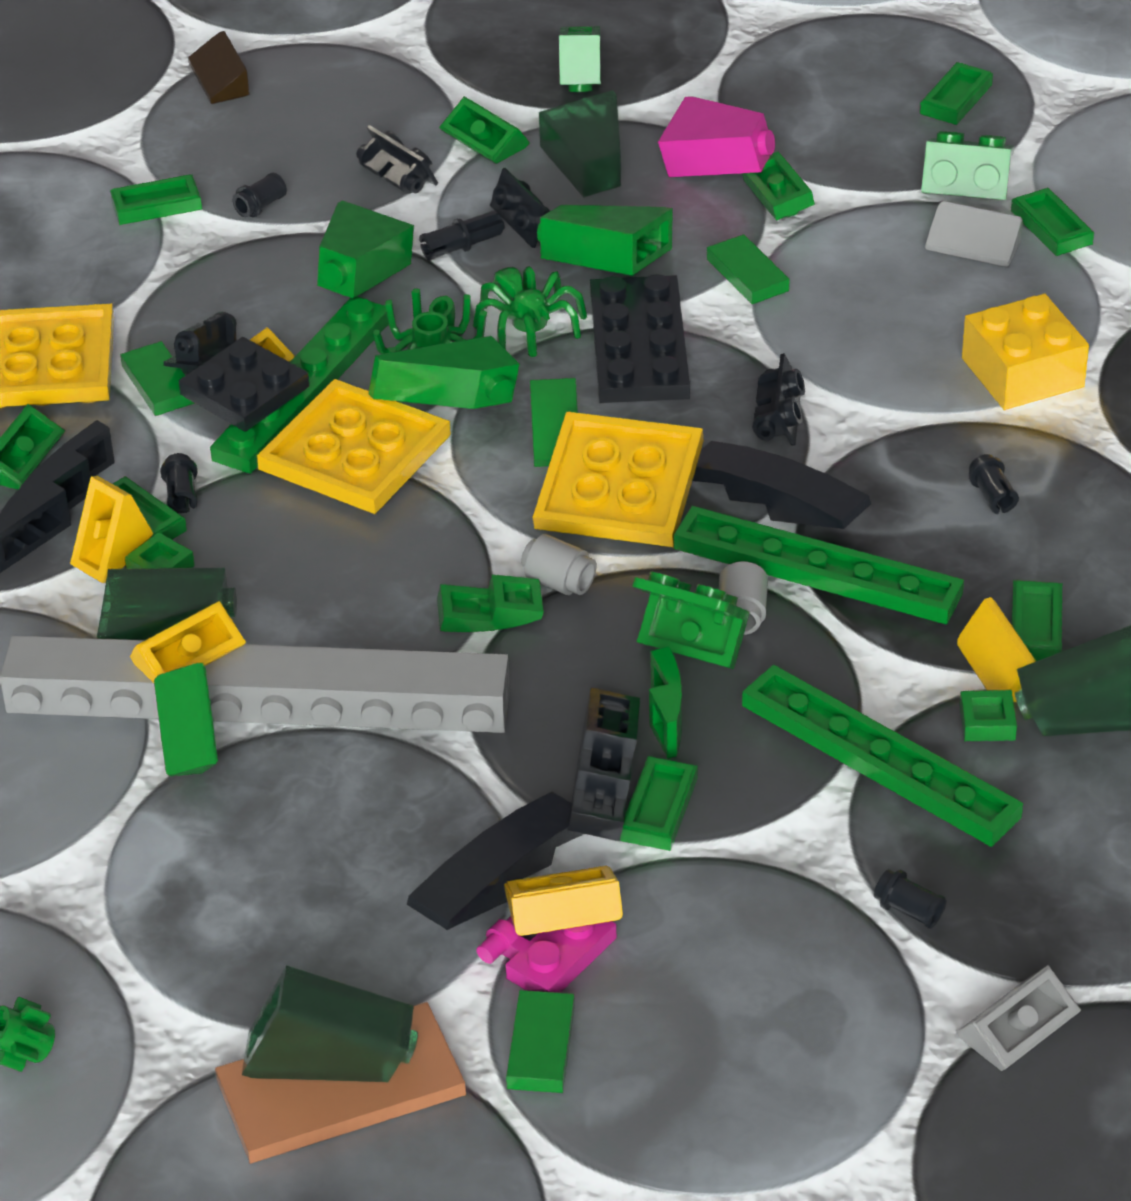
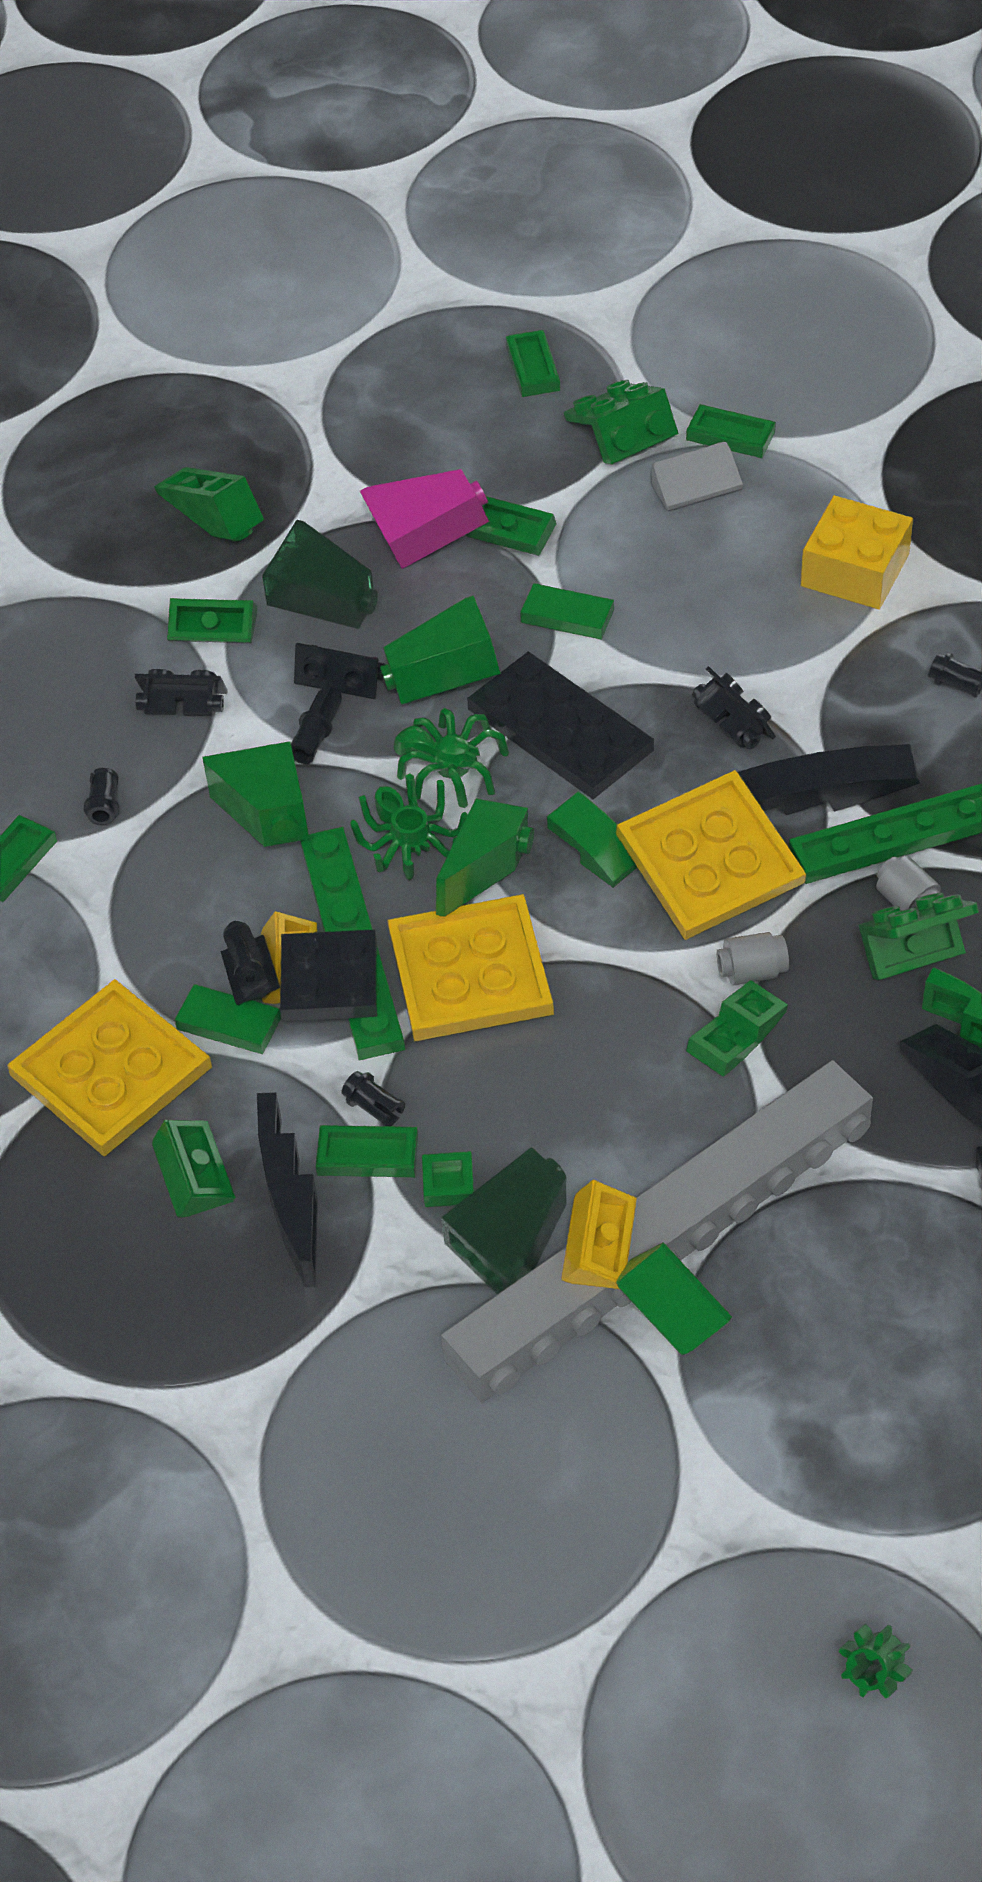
camera: 40 degrees left, 10 degrees up
(107, 529) = (387, 1187): yellow slope -> none

